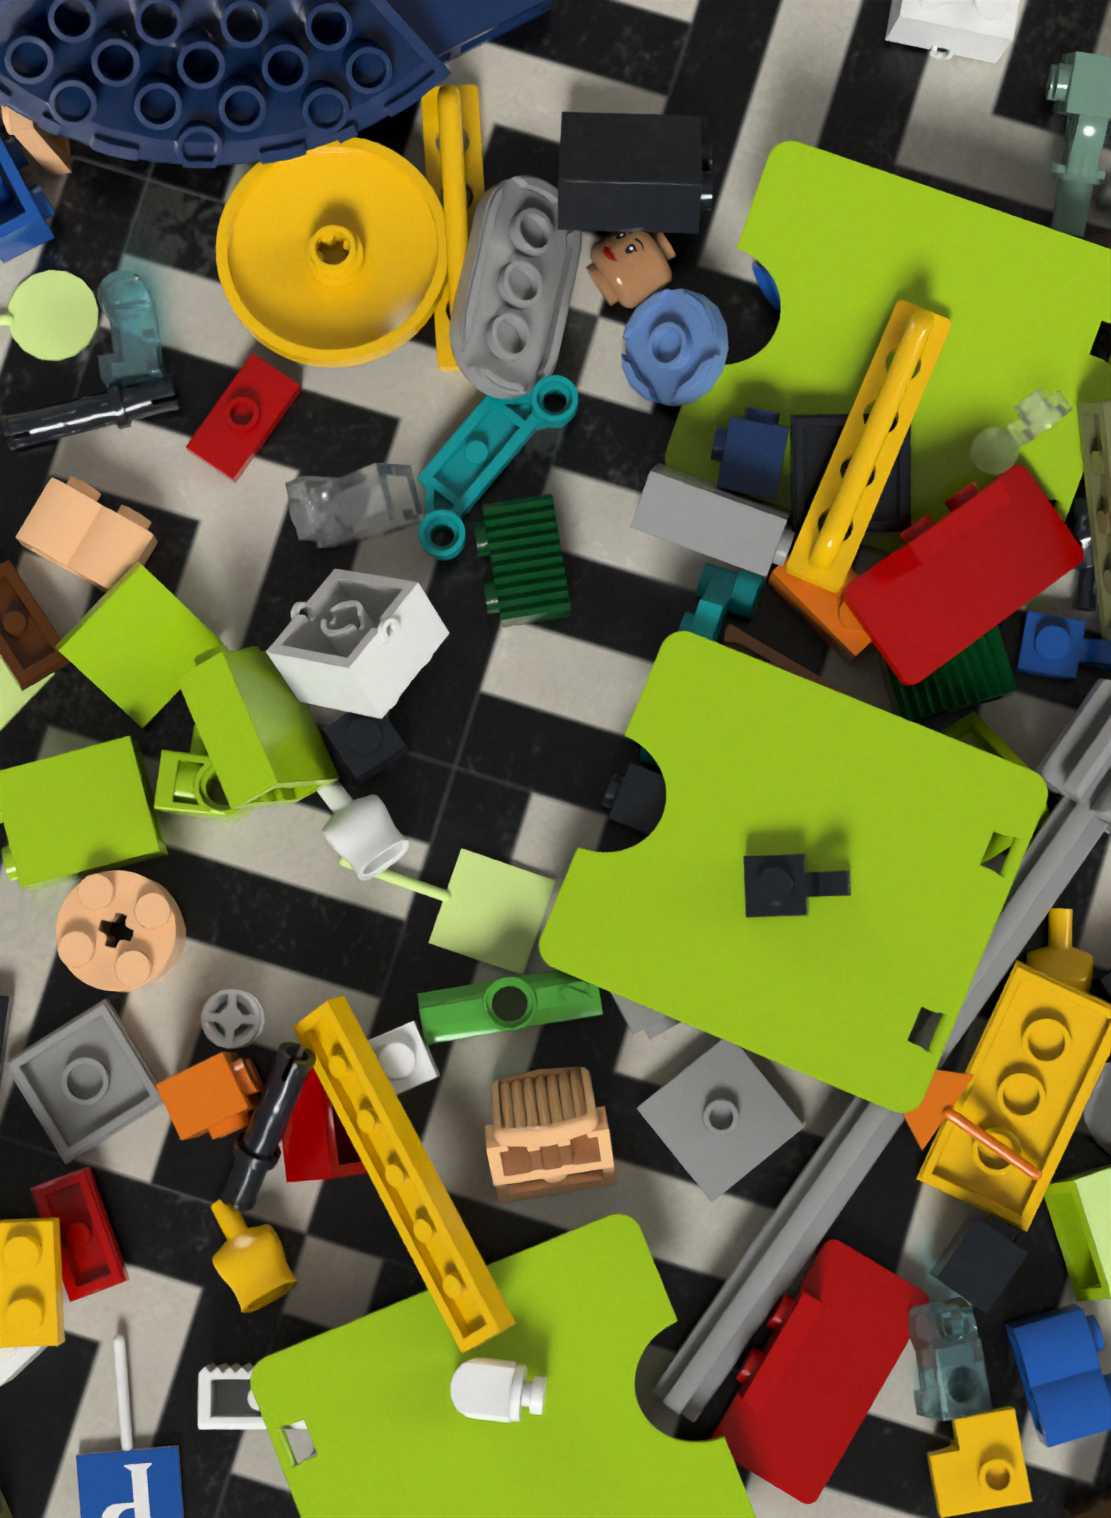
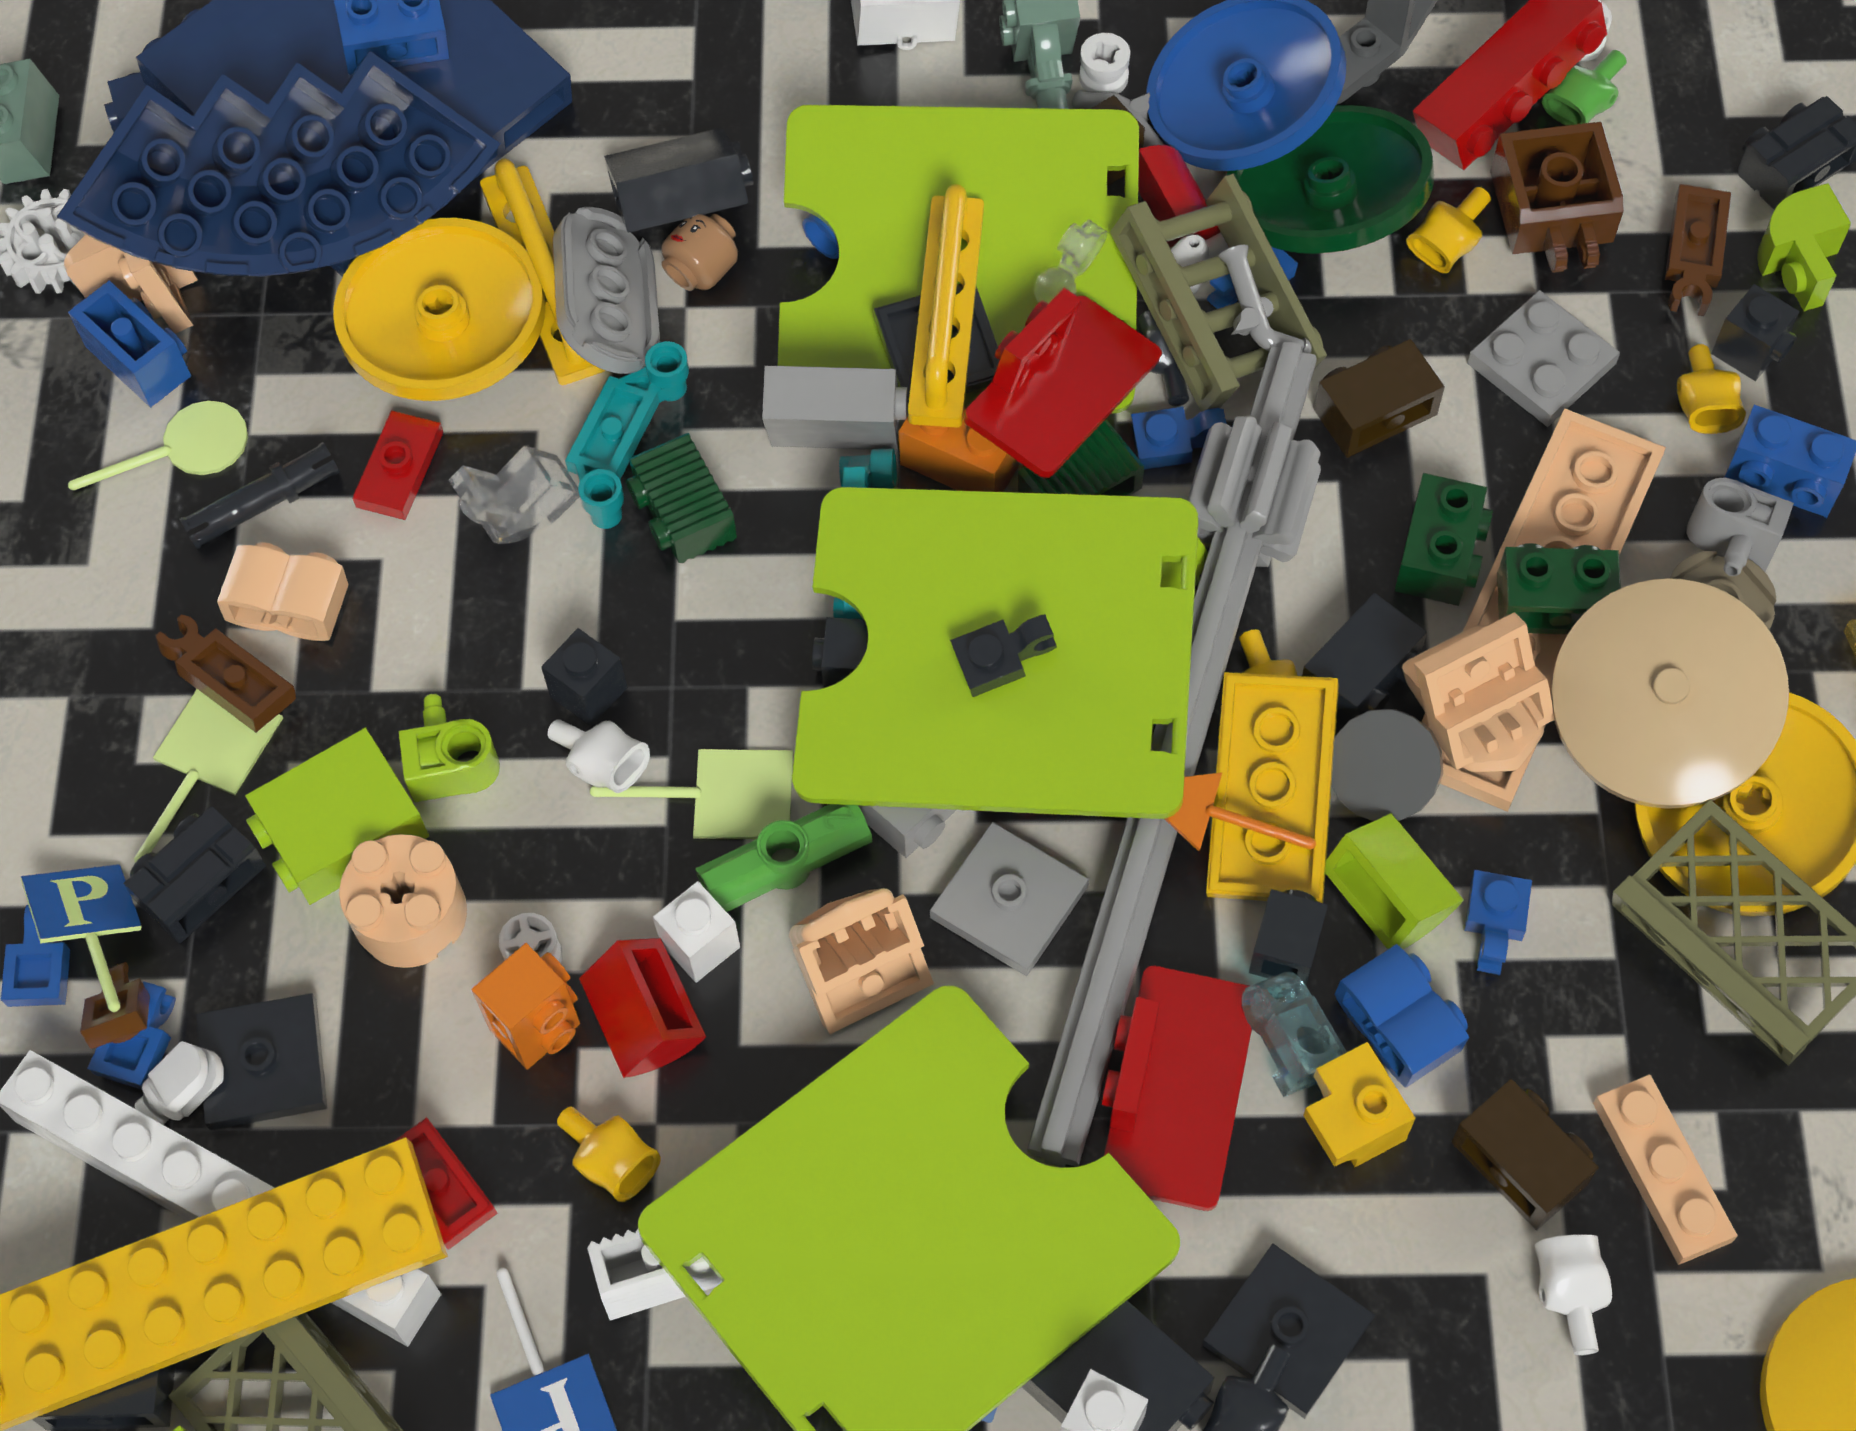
camera: 20 degrees left, 20 degrees down
(86, 1081) = (406, 1049): light grey tile -> none
(133, 330) = (275, 413): clear light blue leg -> none
(137, 643) = (354, 659): lime tile -> none
(255, 729) = (481, 683): lime brick -> none
(258, 1147) = (588, 1020): black pin -> none
(358, 642) = (551, 586): white brick -> none
(404, 1175) = (731, 1004): yellow plate -> none
(496, 1390) = (876, 1161): white arm -> none
(674, 347) = (757, 299): medium blue tile -> none
(751, 452) = (848, 341): dark blue brick -> none

